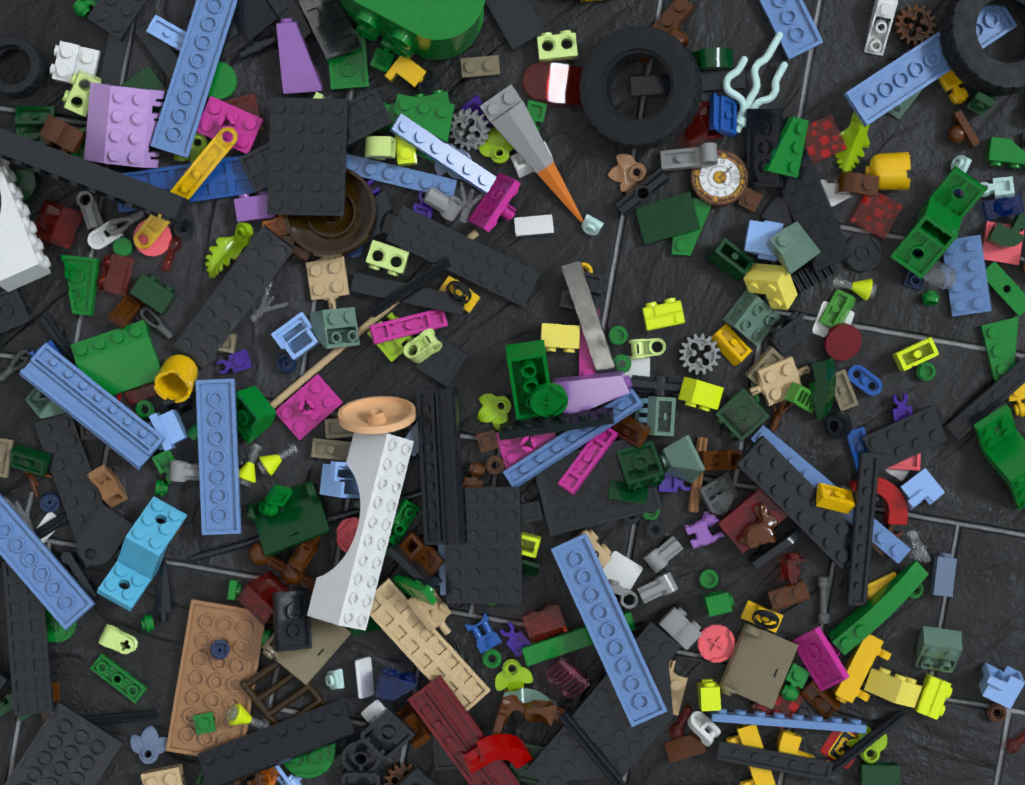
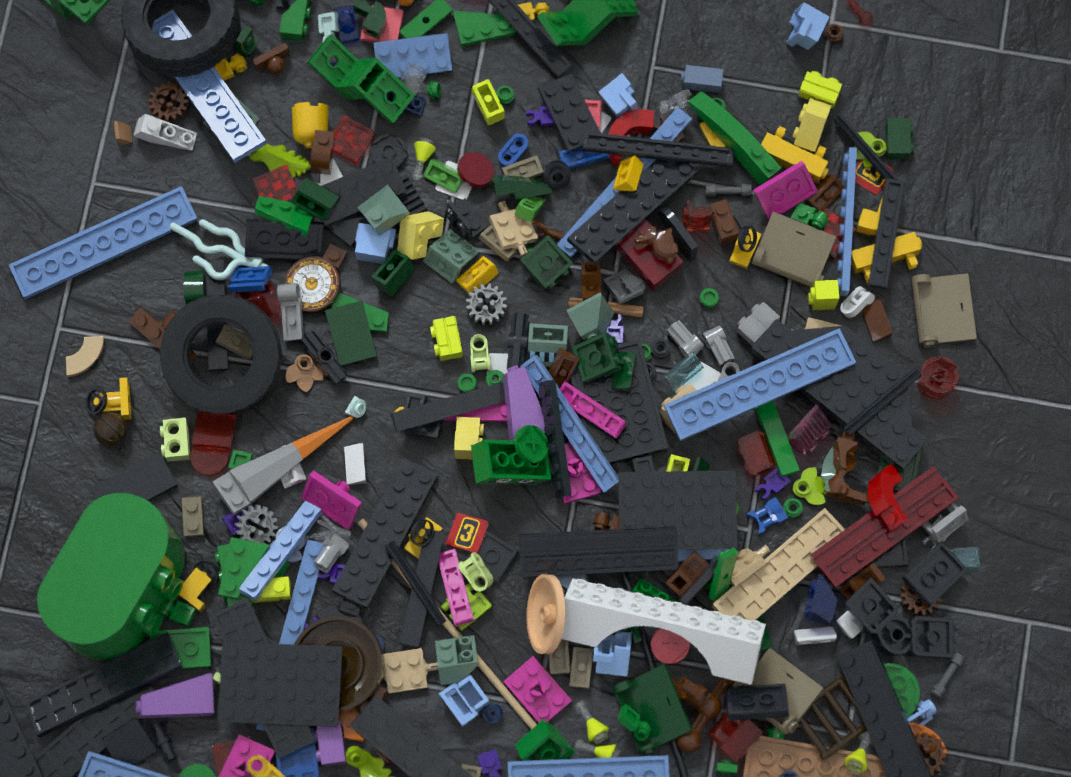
camera: 90 degrees left, 15 degrees down
(264, 306) = (434, 734): clear plant -> none
(335, 679) = (817, 665): light aqua plate -> none
(380, 147) = (272, 613): yellowish green brick -> none
(389, 253) = (380, 607): yellowish green brick -> none
(465, 337) = (467, 532): none -> sticker
(487, 441) = (572, 511): reddish brown plate -> none
(492, 412) = (543, 506): lime plate -> none
(494, 459) = (599, 498): reddish brown plate -> none
(495, 144) = (272, 501): lime plate -> none
(629, 552) = (683, 371): none -> clear light blue tile
(656, 101) = (235, 342): none -> dark tan plate
(676, 730) = (859, 328): clear red bar -> none
(700, 393) = (526, 301): neon yellow brick -> none
(700, 528) = (662, 303): medium lavender animal -> none
(716, 643) = (773, 290): coral tile -> none
(717, 602) = (732, 286): green brick -> none
(803, 177) = (315, 199): none -> dark green brick
(938, 649) = (774, 84): sand green slope -> none
(961, 162) = (301, 62): light aqua plate -> none

